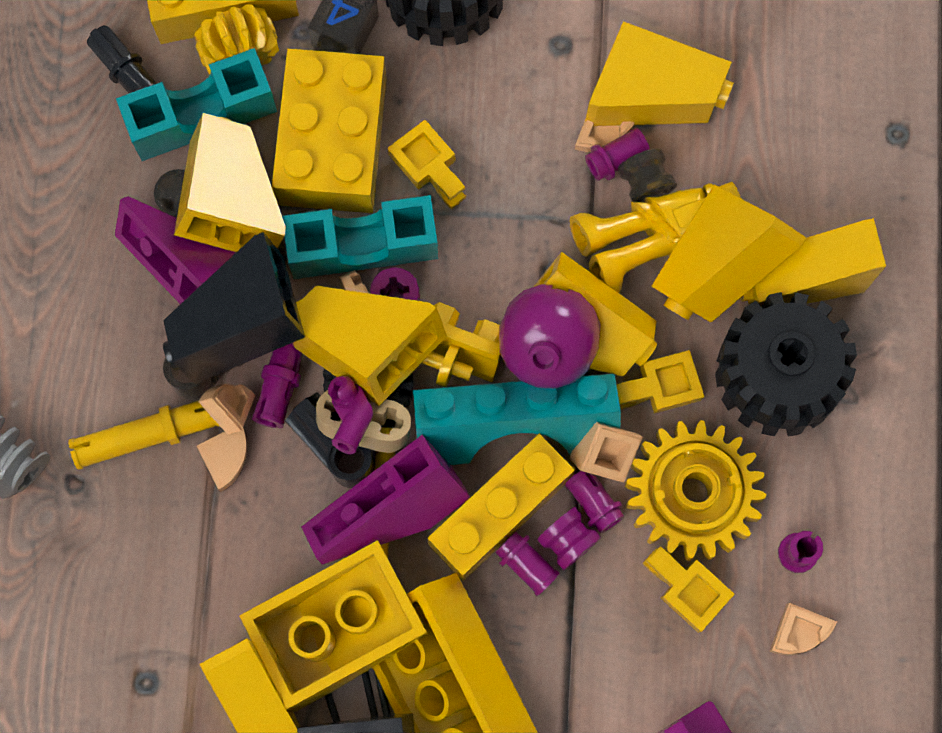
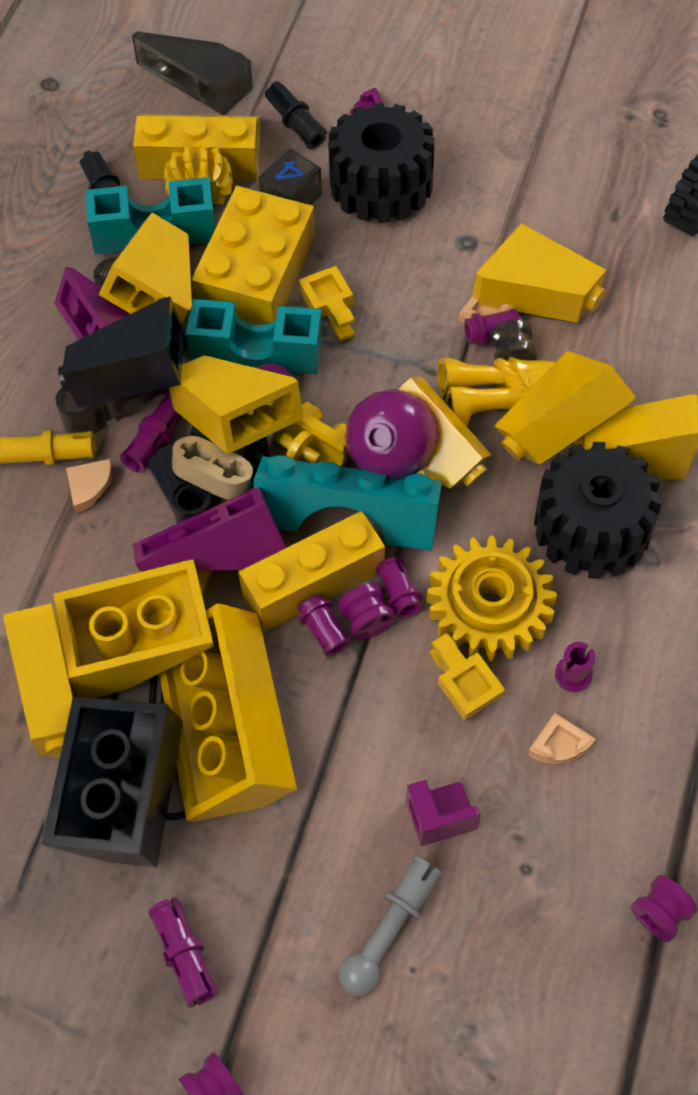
camera: 15 degrees right, 15 degrees down
(228, 405) = (102, 439): light nougat tile -> none
(353, 411) = (203, 451): magenta arm -> none
(606, 451) = (420, 542): light nougat slope -> none
(665, 382) = (487, 506): yellow plate -> none

